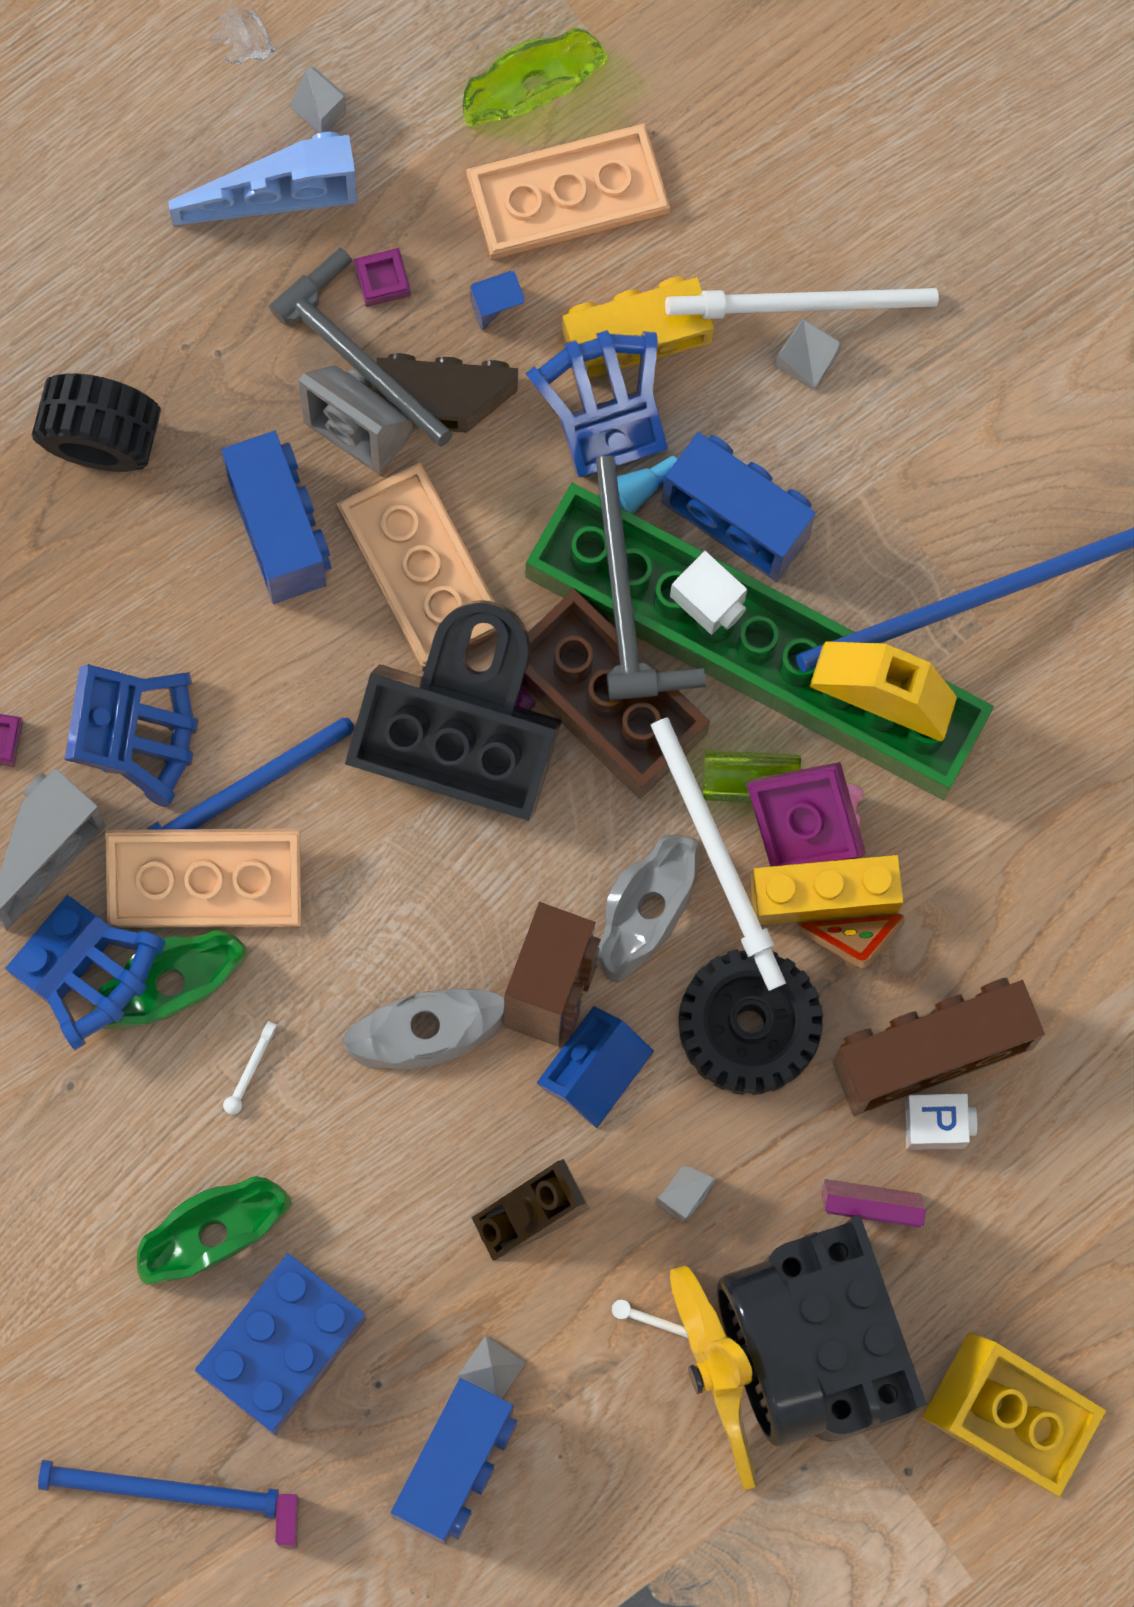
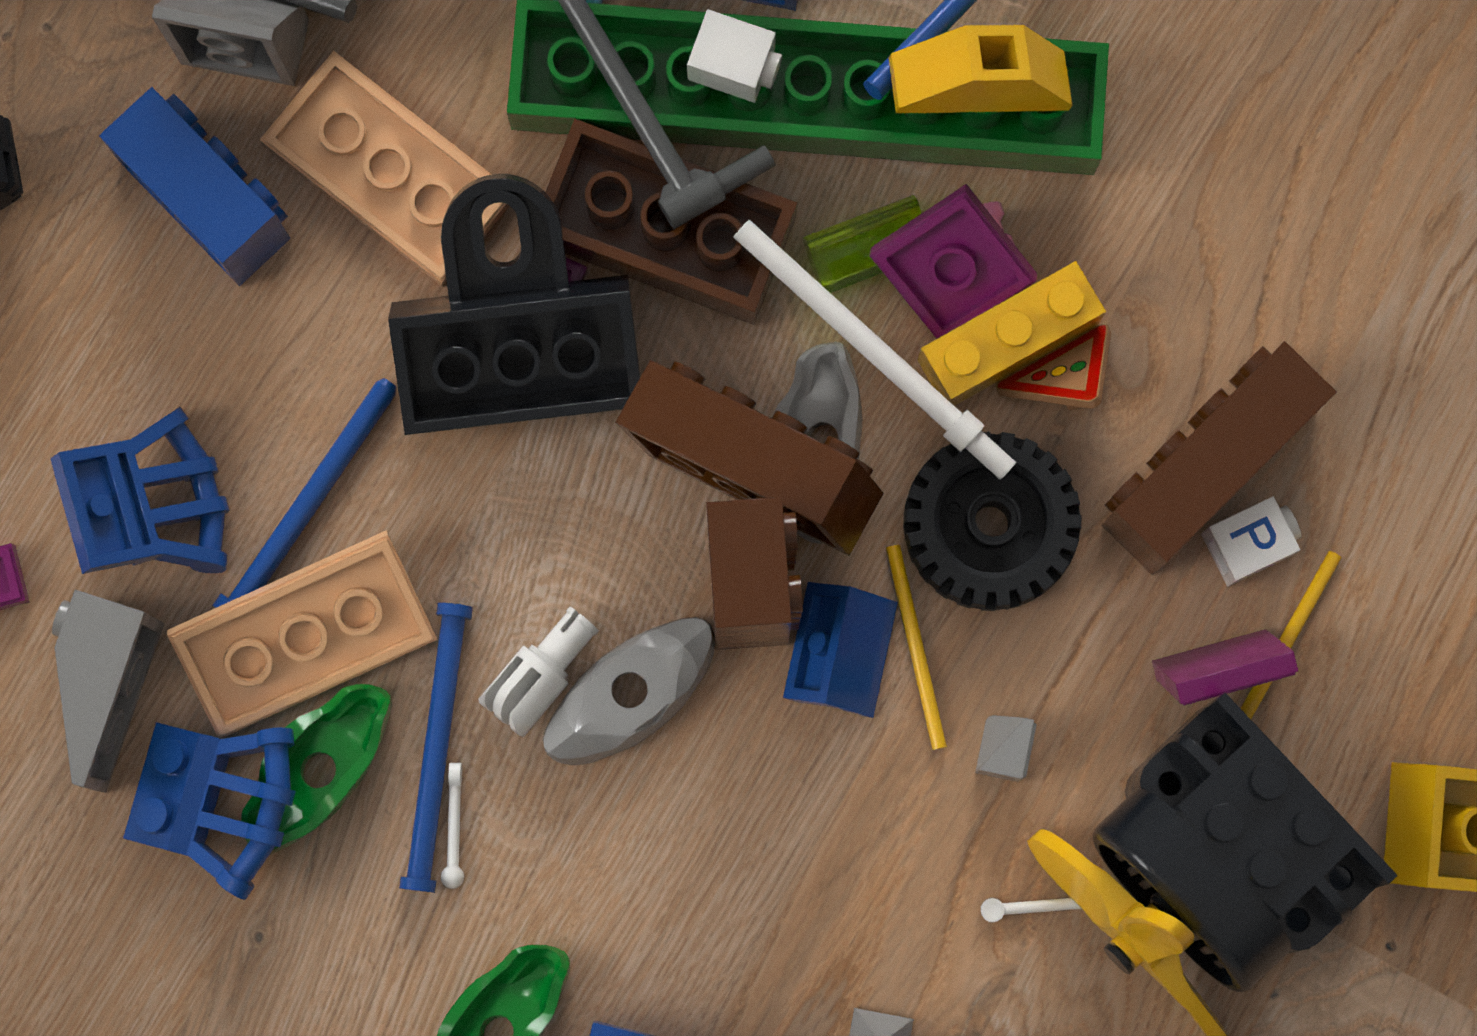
camera: 20 degrees left, 5 degrees up
(263, 1004) = (436, 747): none -> blue bar
(362, 983) = (537, 674): none -> white arm
(531, 1210) = (843, 848): dark brown slope -> none
(584, 881) = (750, 454): none -> reddish brown brick
(652, 1090) = (916, 647): none -> yellow axle
(938, 1204) = (1296, 623): none -> yellow axle

